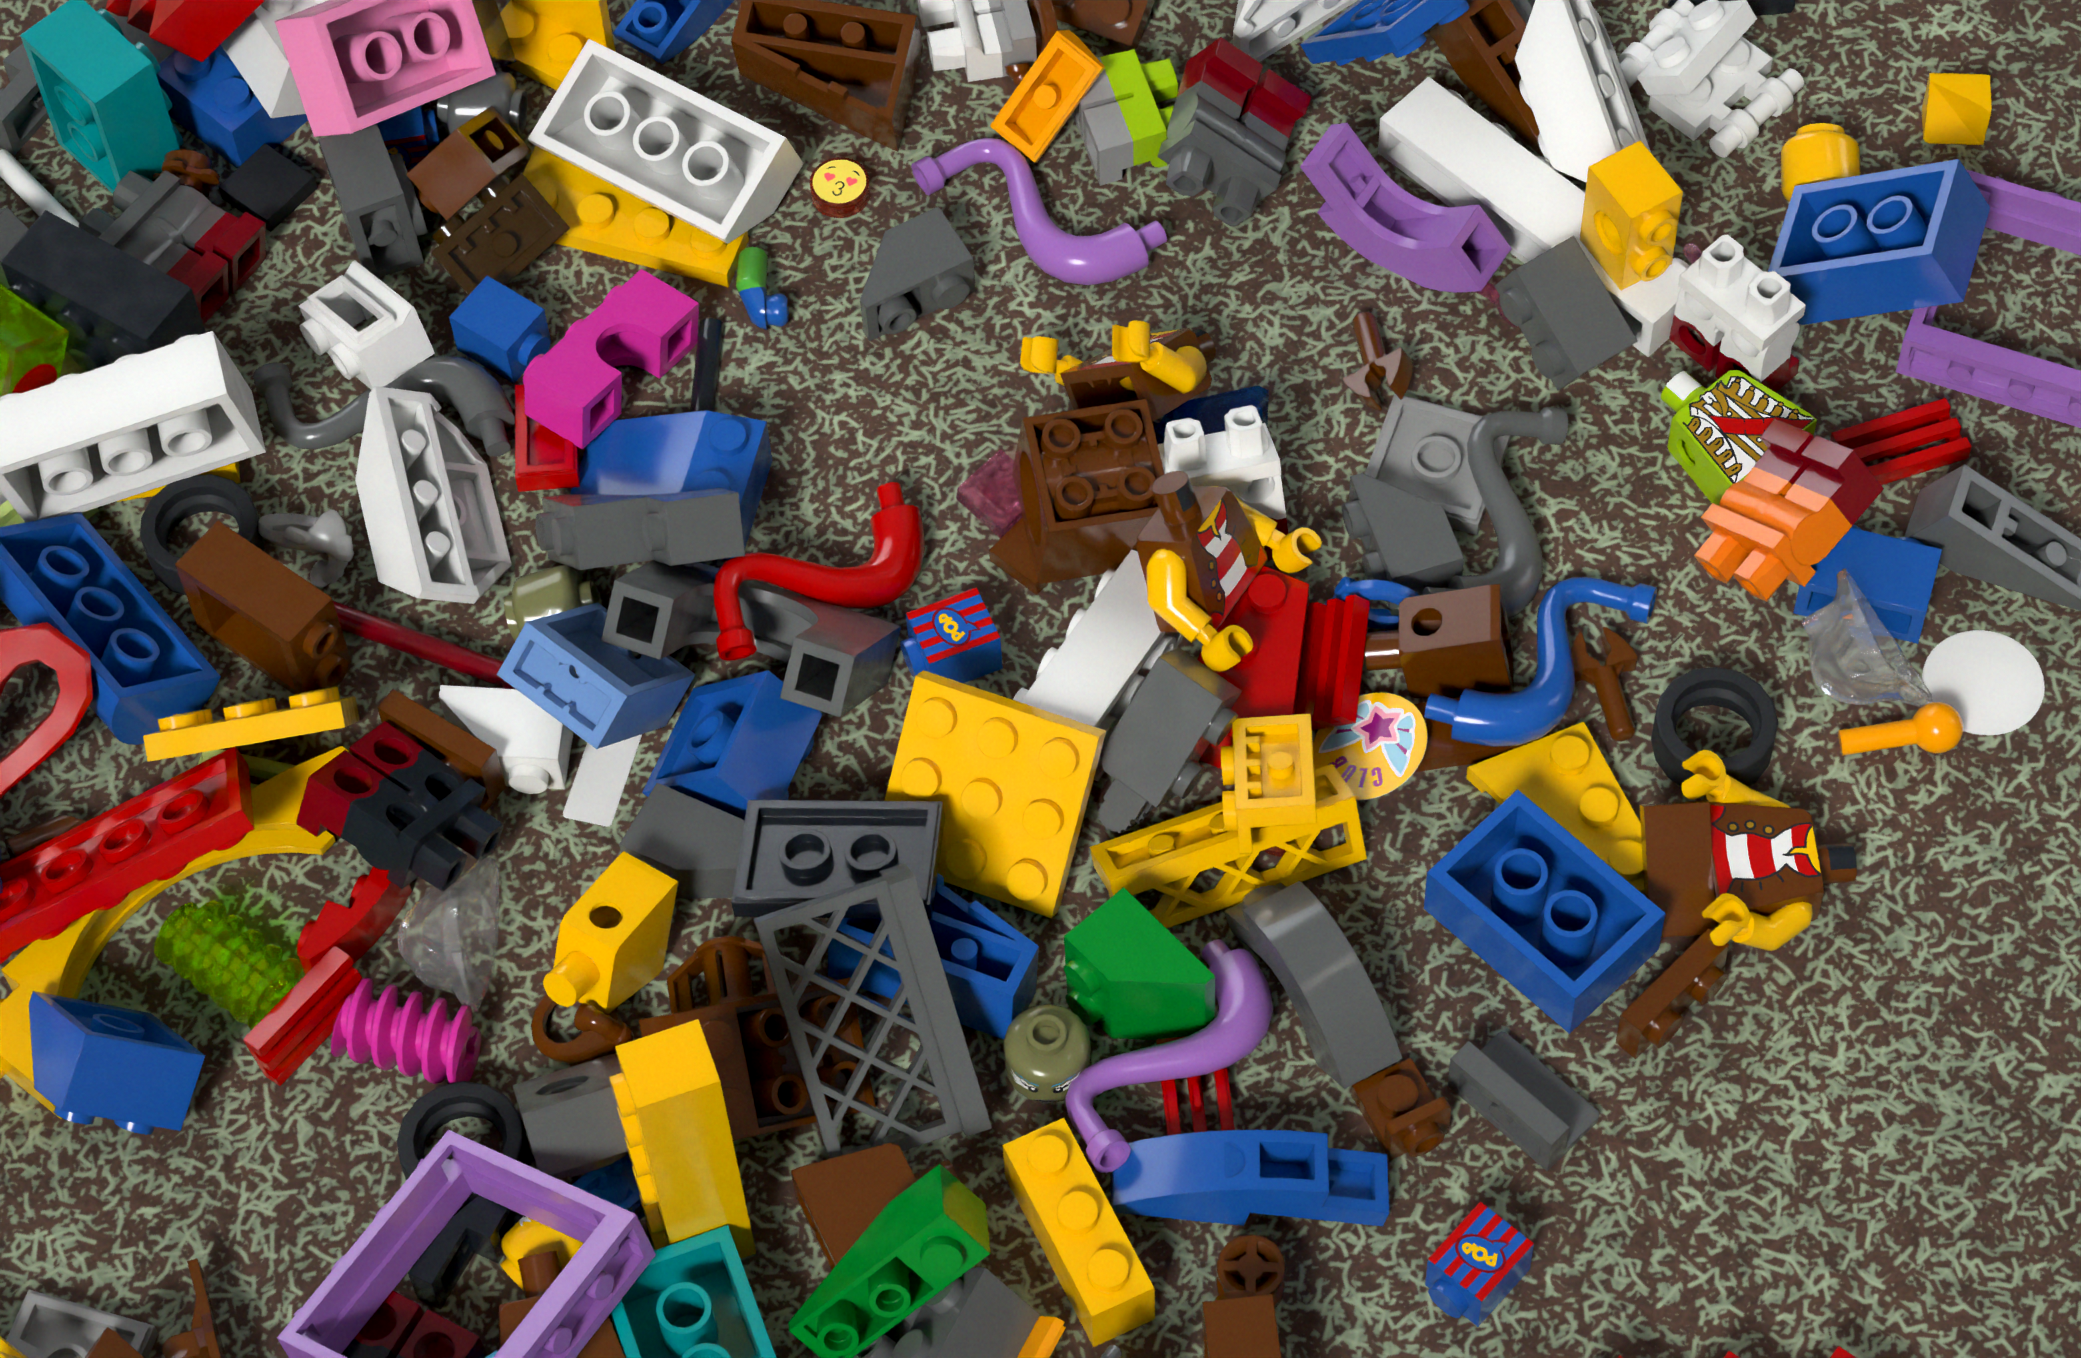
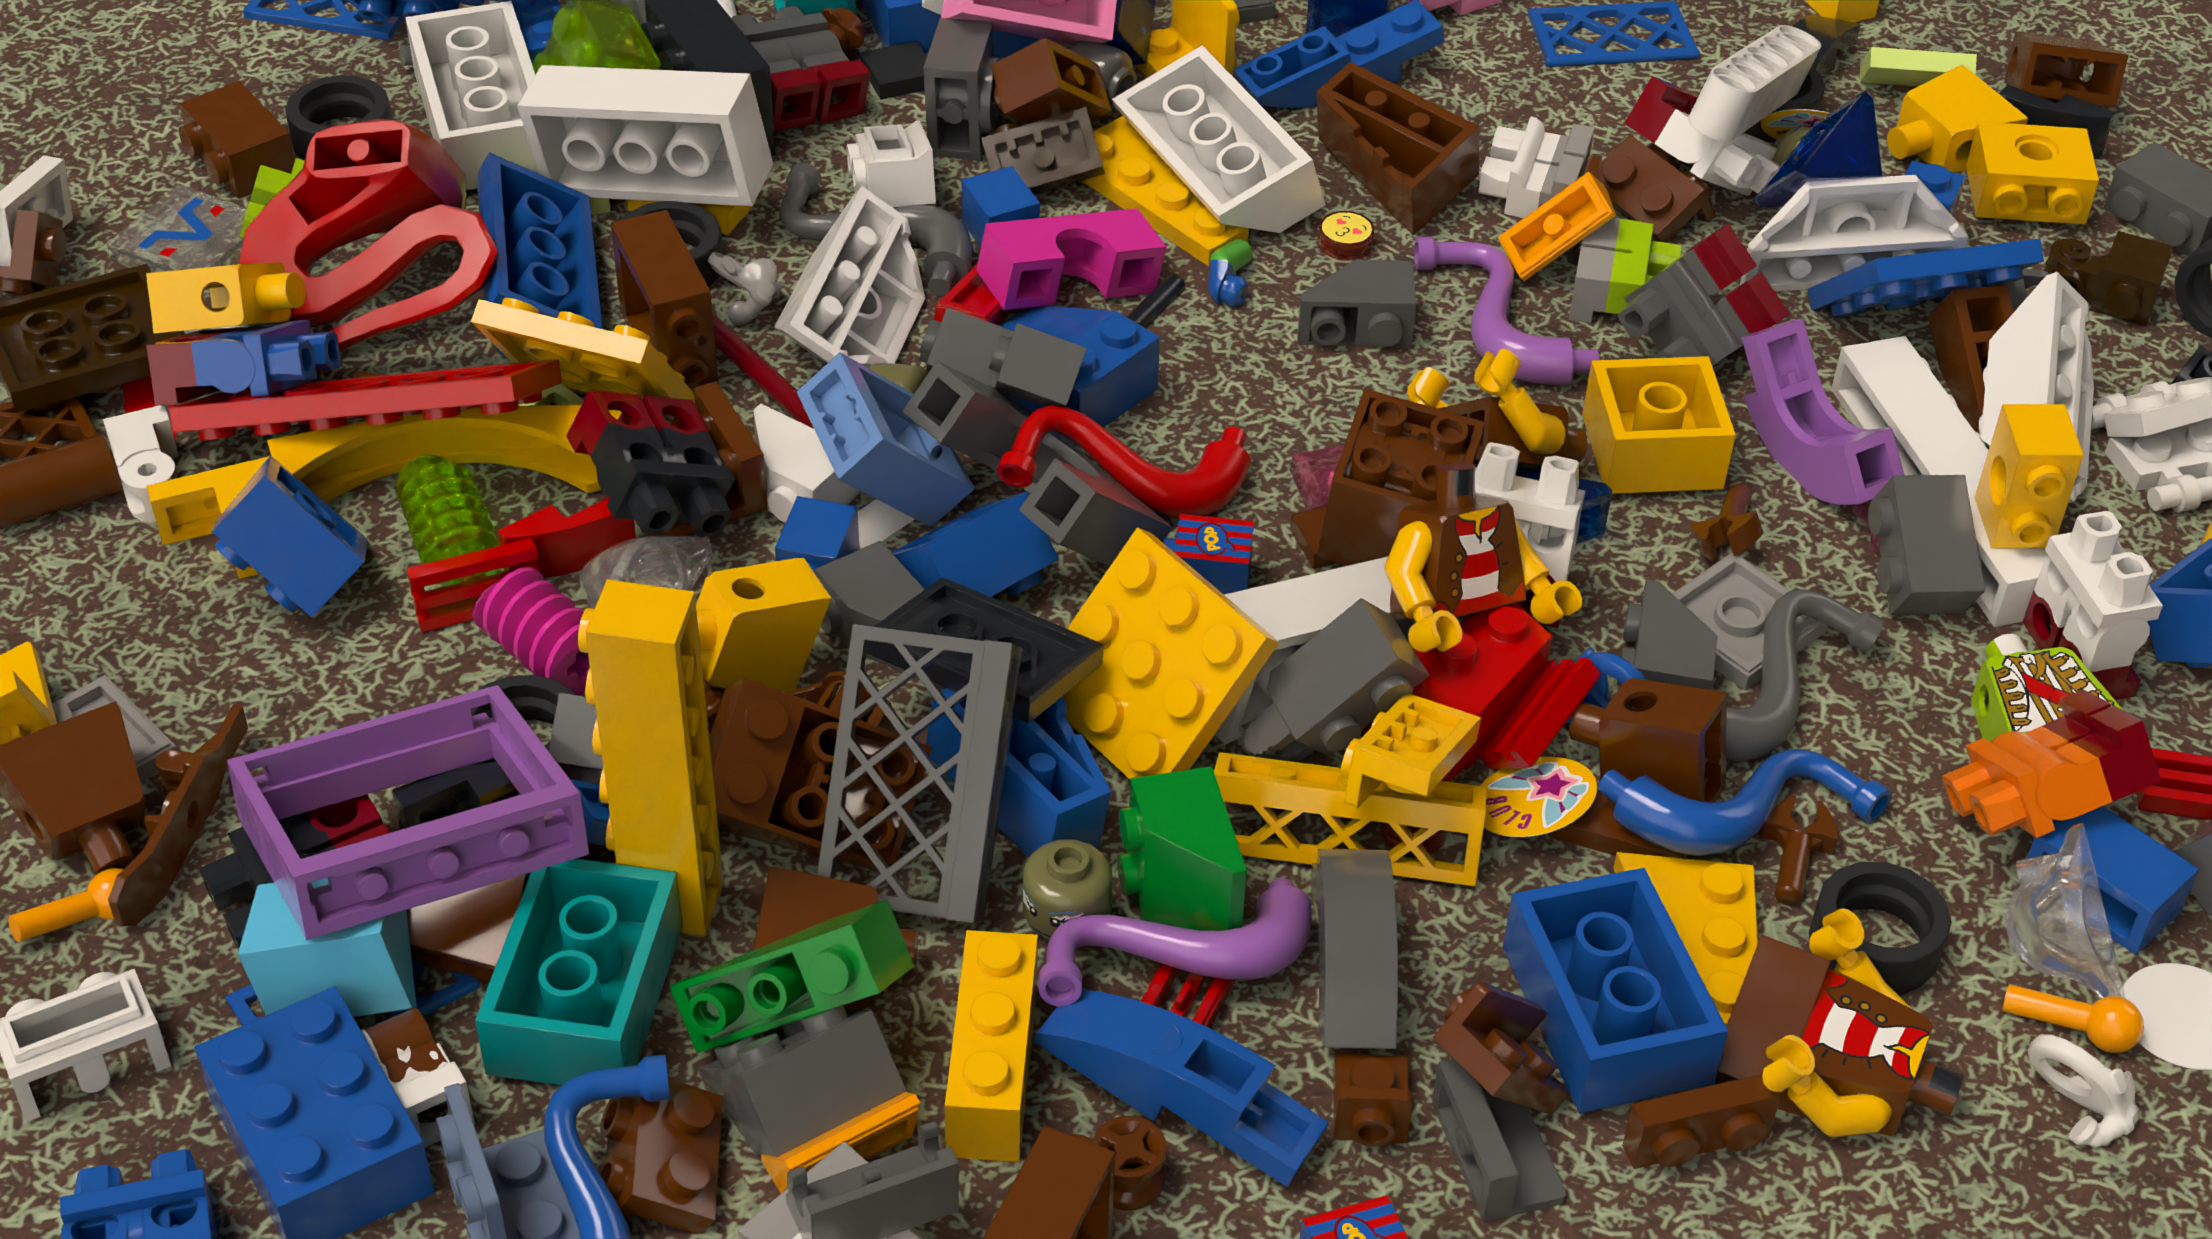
camera: 25 degrees right, 15 degrees down
(591, 811) = (818, 532): none -> blue brick
(1262, 289) = (1658, 424): none -> yellow brick
(1493, 1029) = (1488, 1038): none -> reddish brown bracket
(1962, 797) = (2103, 1092): none -> white piece

